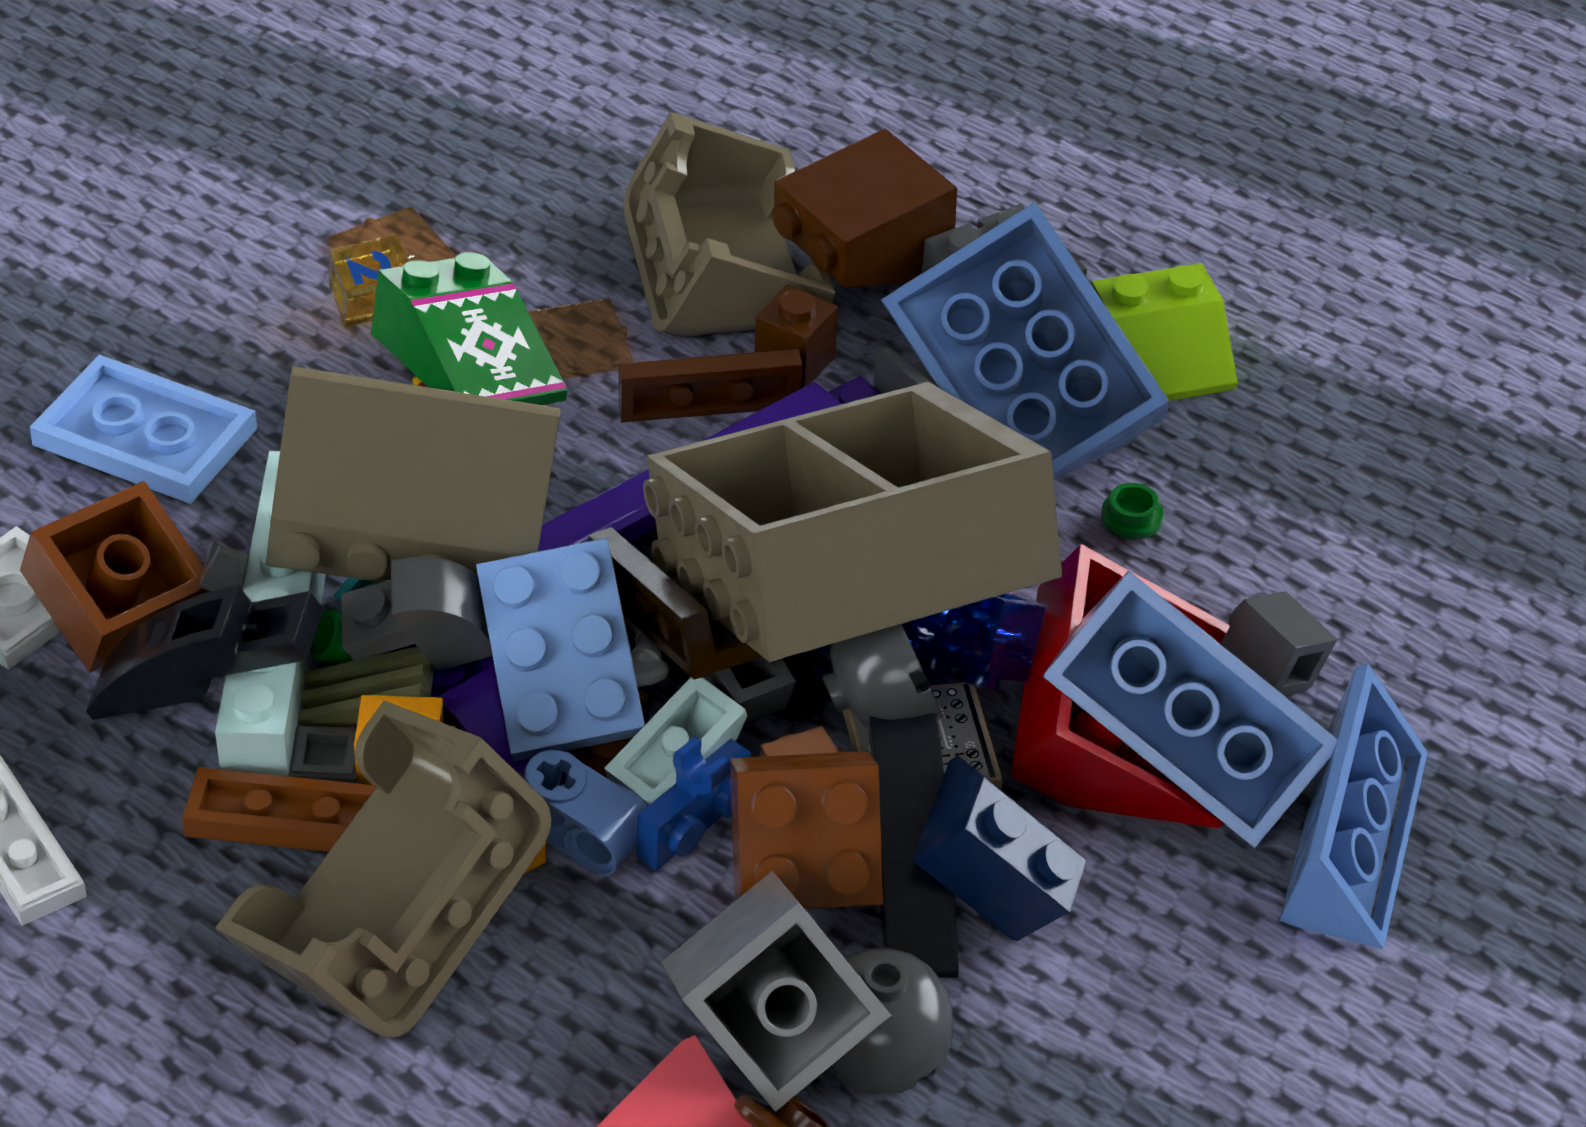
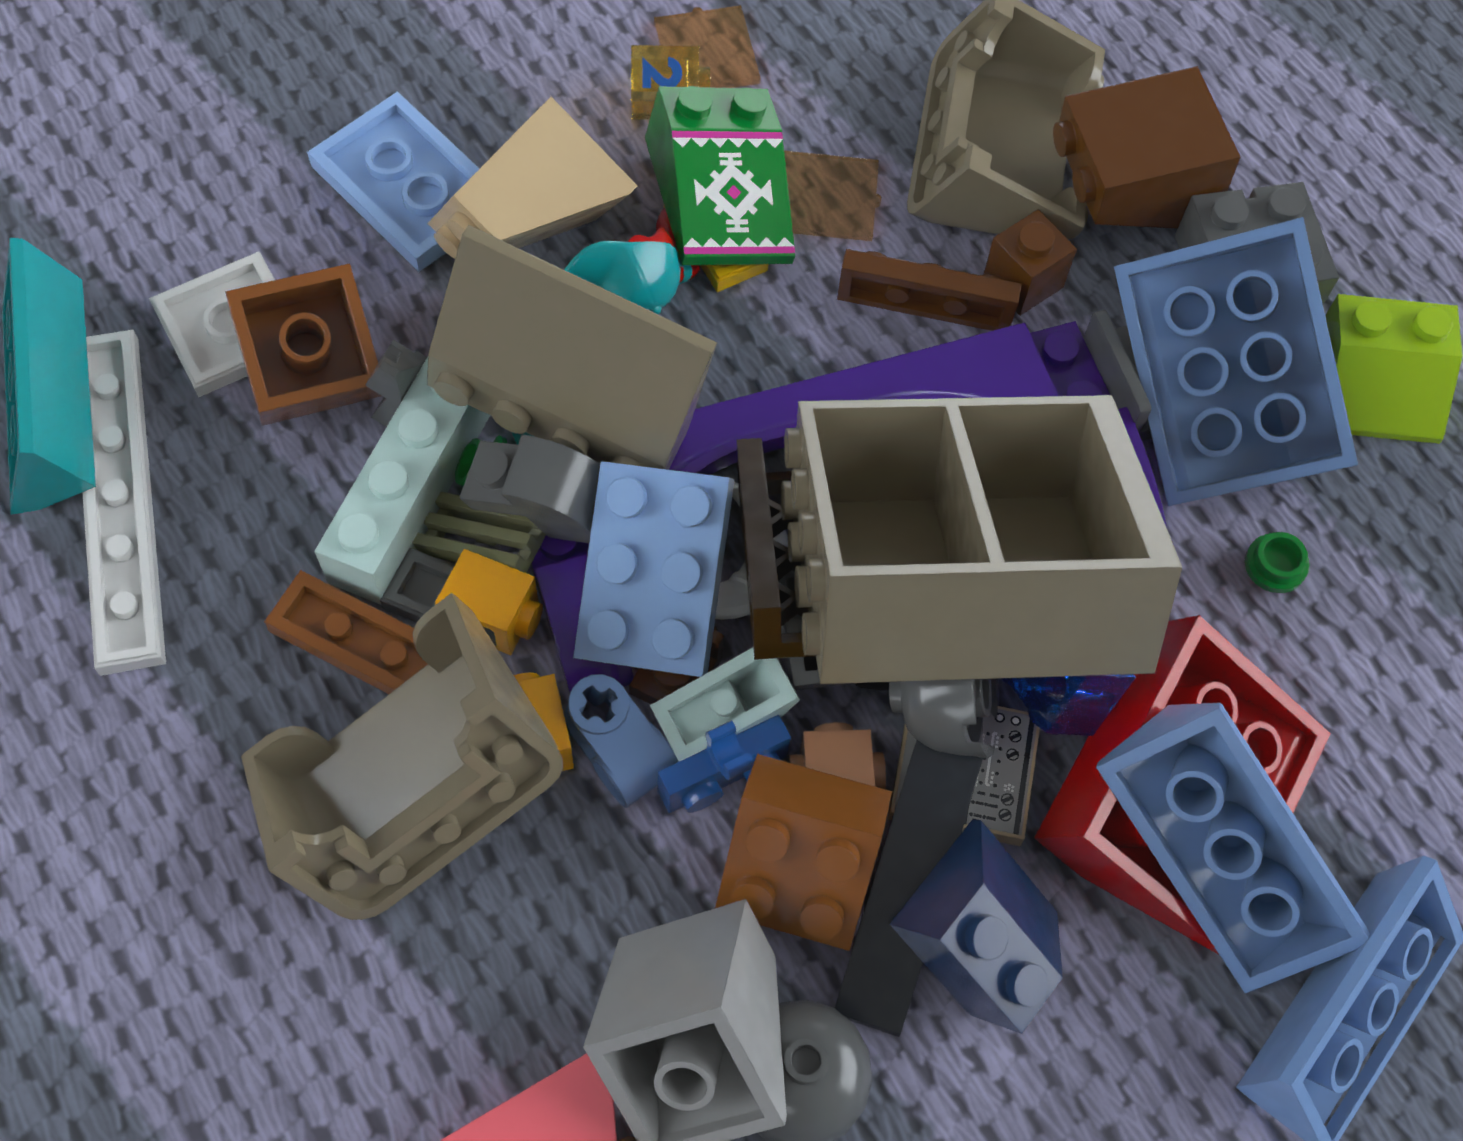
camera: 20 degrees right, 20 degrees up
(199, 639) = (342, 460): black slope -> none
(253, 404) = (535, 185): none -> tan slope
(1279, 641) = (1357, 773): dark grey brick -> none

